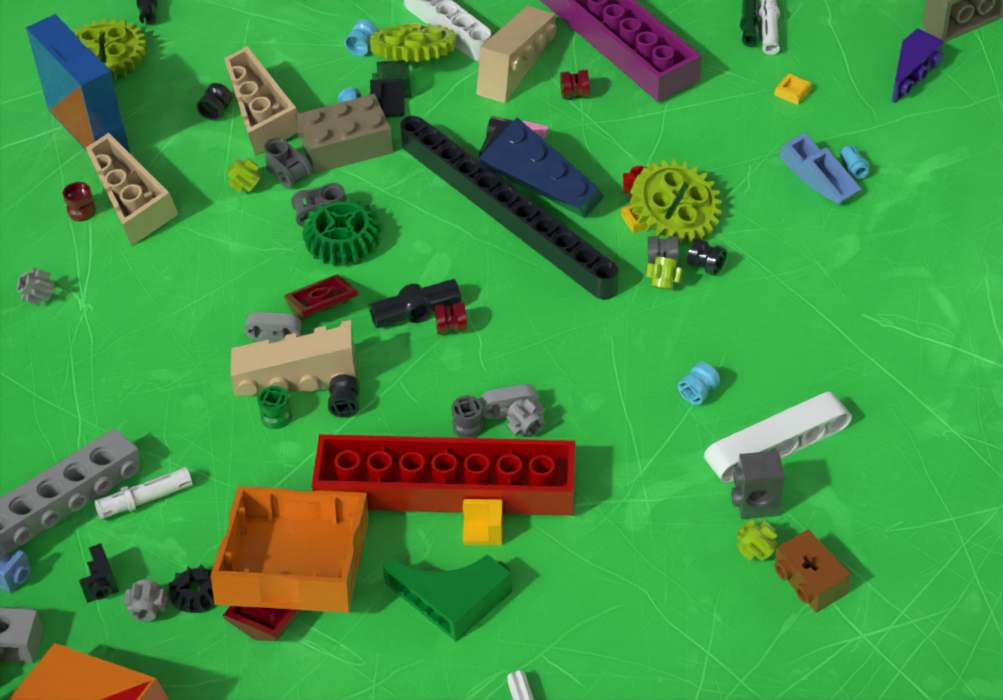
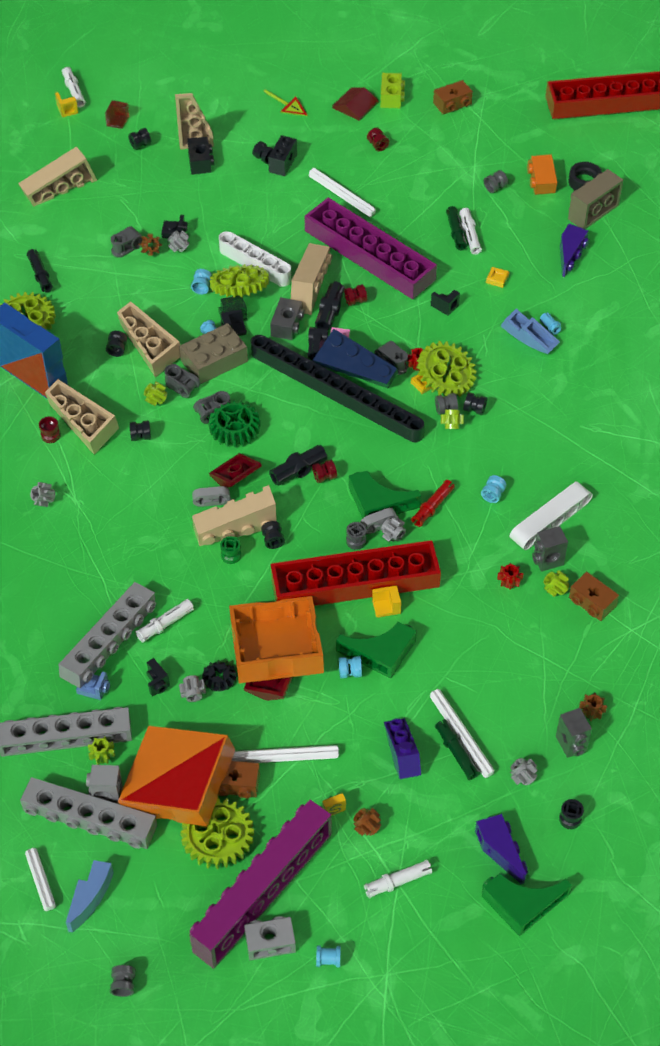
camera: 15 degrees left, 5 degrees up
(204, 221) = (140, 430): none -> black wheel
(394, 611) = (355, 667): none -> medium azure wheel
(464, 102) = (286, 318): none -> flat silver brick
(511, 365) = (373, 497): none -> green arch
(533, 93) = (330, 305): none -> black piece
(591, 395) = (428, 508): none -> red pin
(604, 174) = (393, 355): none -> dark grey piece
(686, 517) = (510, 576): none -> red gear
(704, 113) = (445, 303): none -> panel

